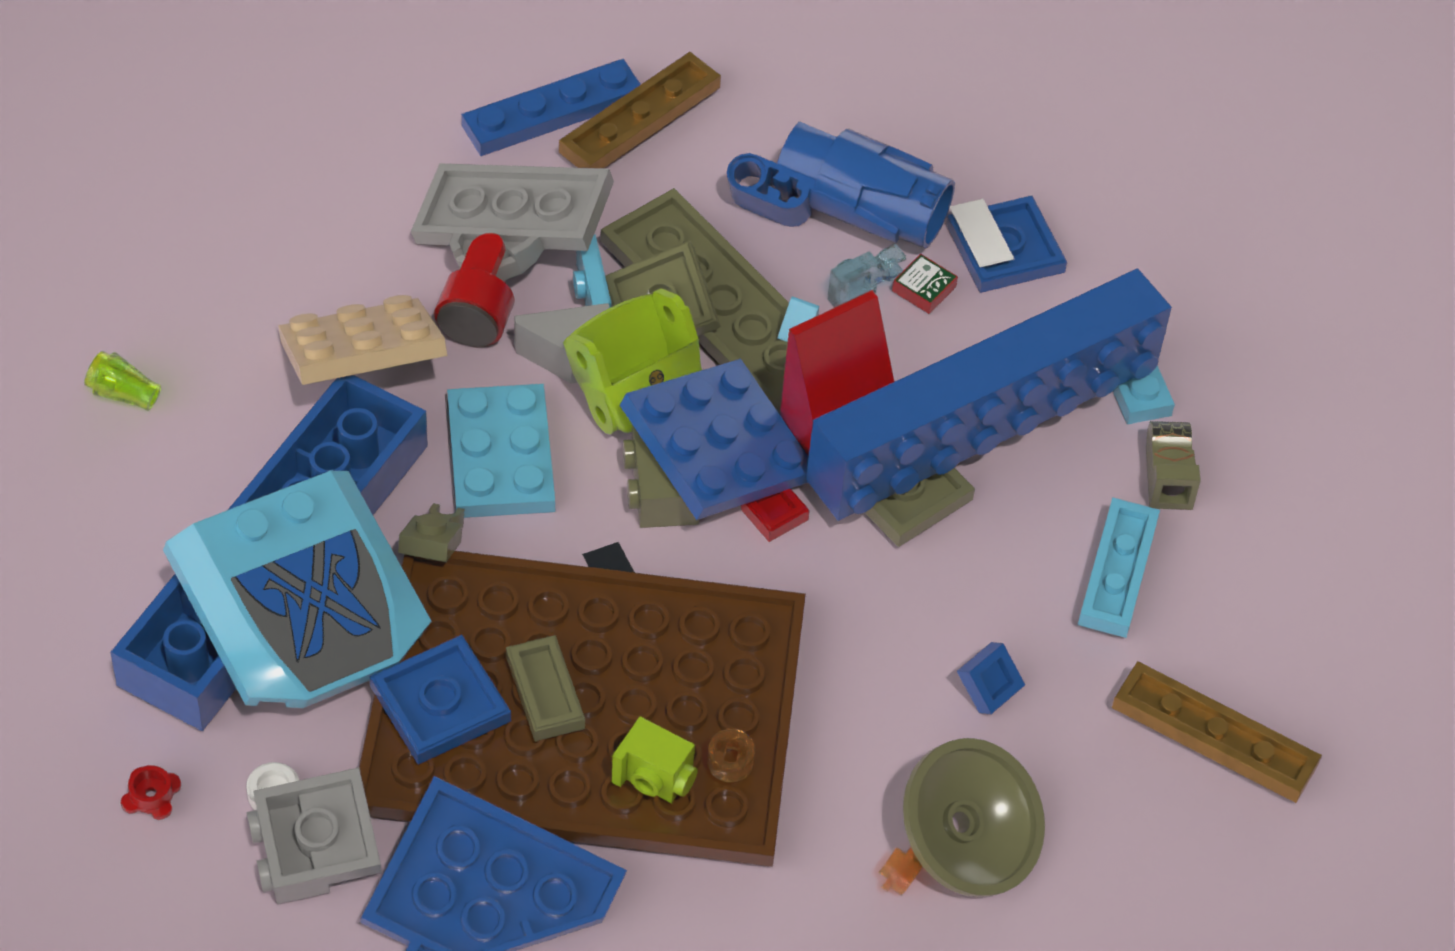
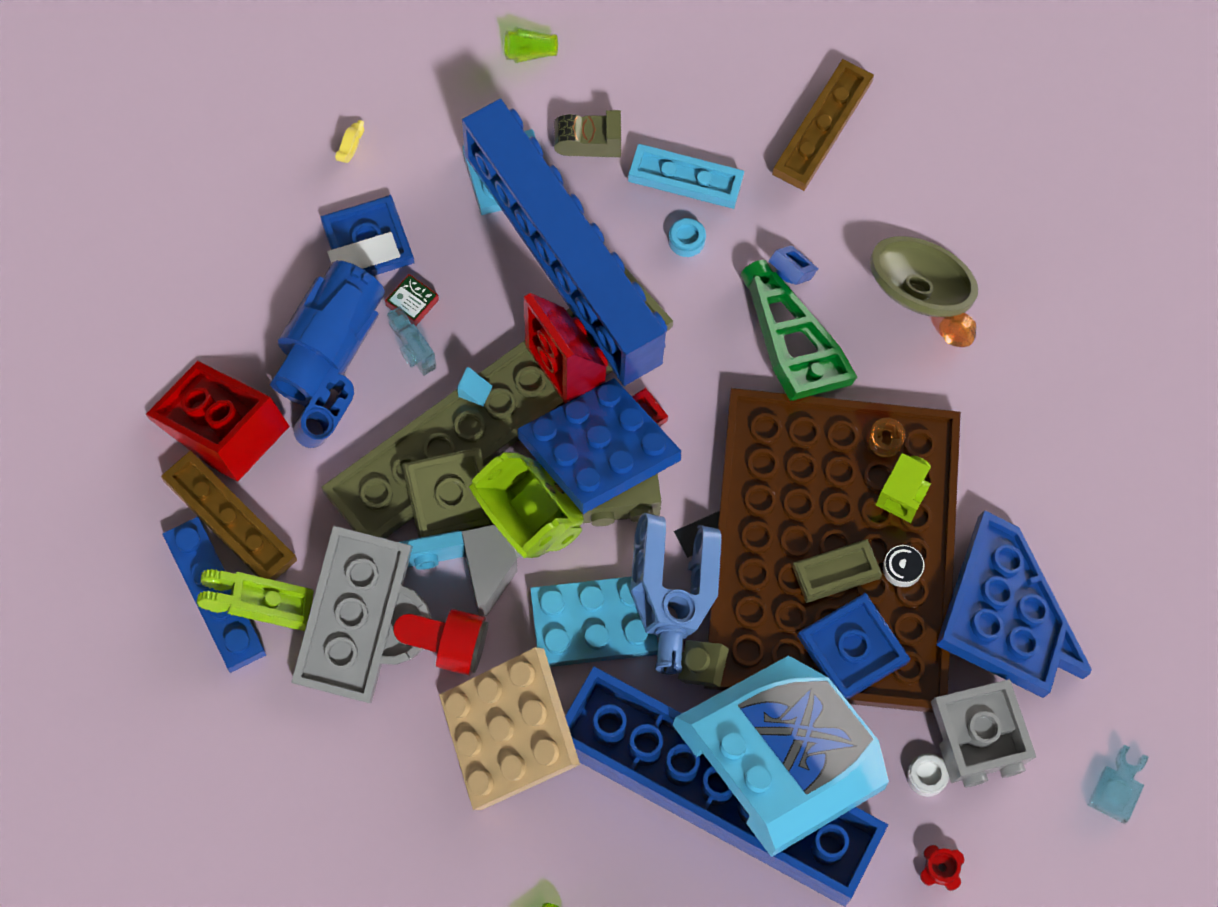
camera: 90 degrees left, 15 degrees up
(512, 481) = (653, 599): none -> medium blue piece
(538, 122) = (256, 598): none -> lime hinge
(547, 761) = (903, 566): none -> black tile
(756, 101) = (219, 419): none -> red slope
(830, 688) = (804, 374): none -> green plate
(1031, 570) = (687, 237): none -> medium azure tile
(1136, 223) = (350, 142): none -> light yellow piece
(1299, 401) = (528, 45): none -> clear neon green cone

